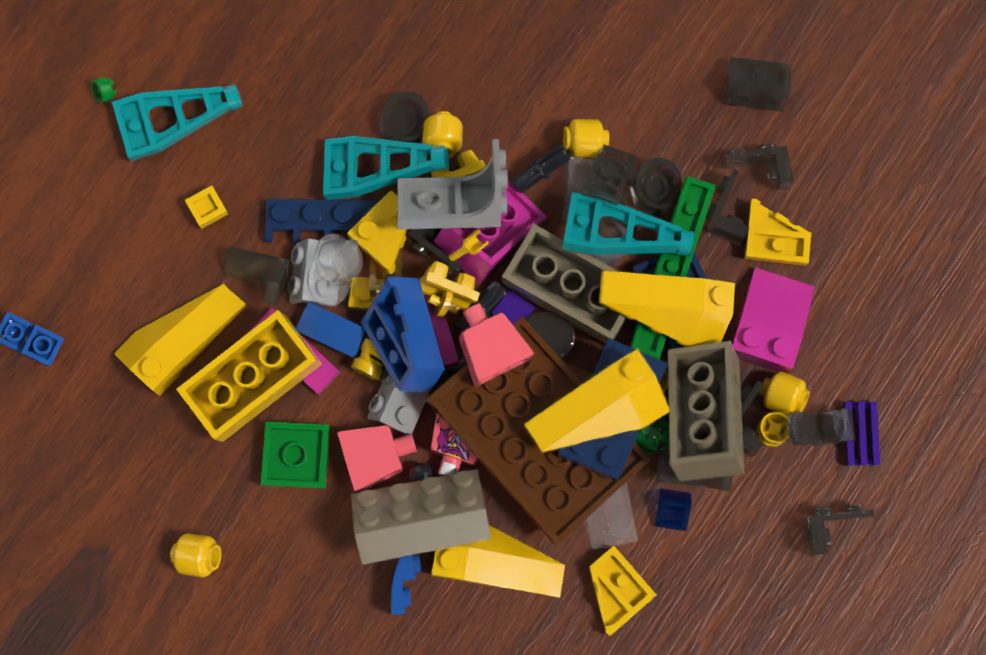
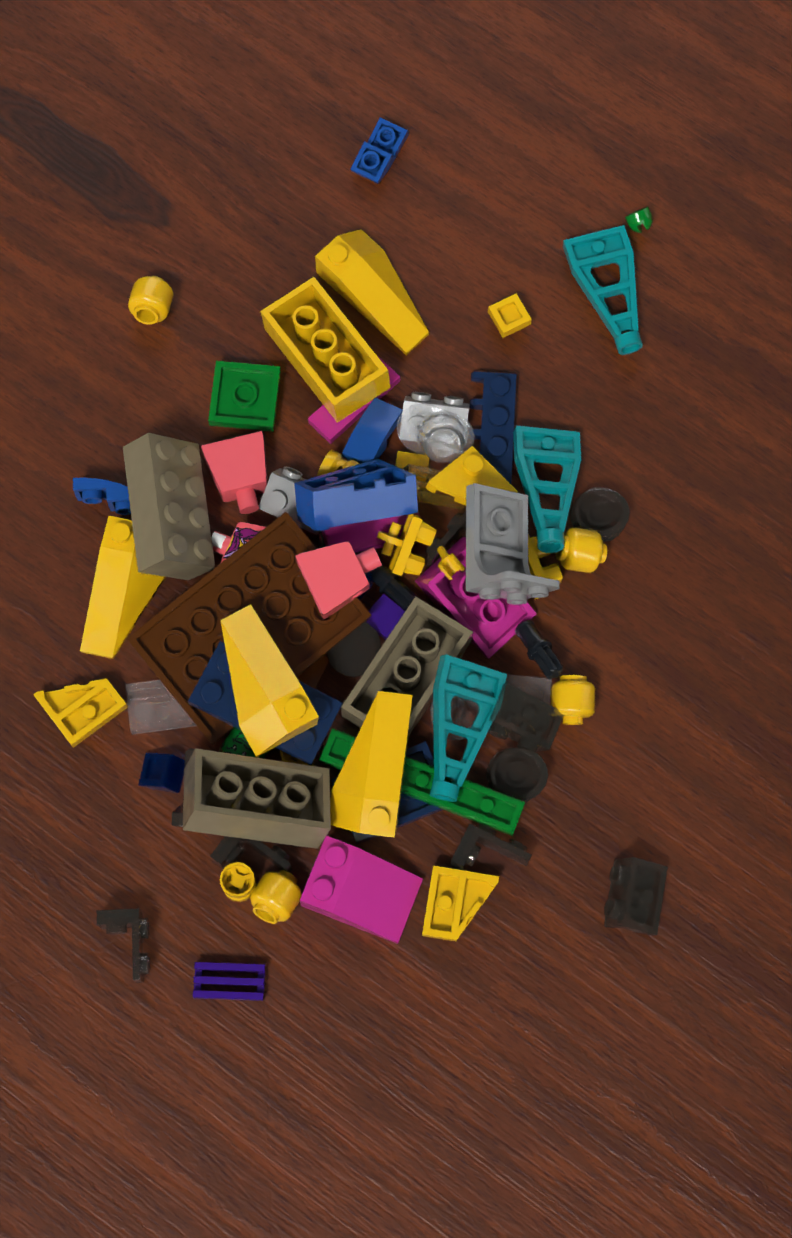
camera: 90 degrees right, 5 degrees down
(259, 268) = (438, 373): clear smoke bracket -> none
(420, 472) = (217, 516): black hinge -> none
(779, 169) = (531, 909): clear smoke bracket -> none
(821, 428) = (234, 927): clear smoke bracket -> none

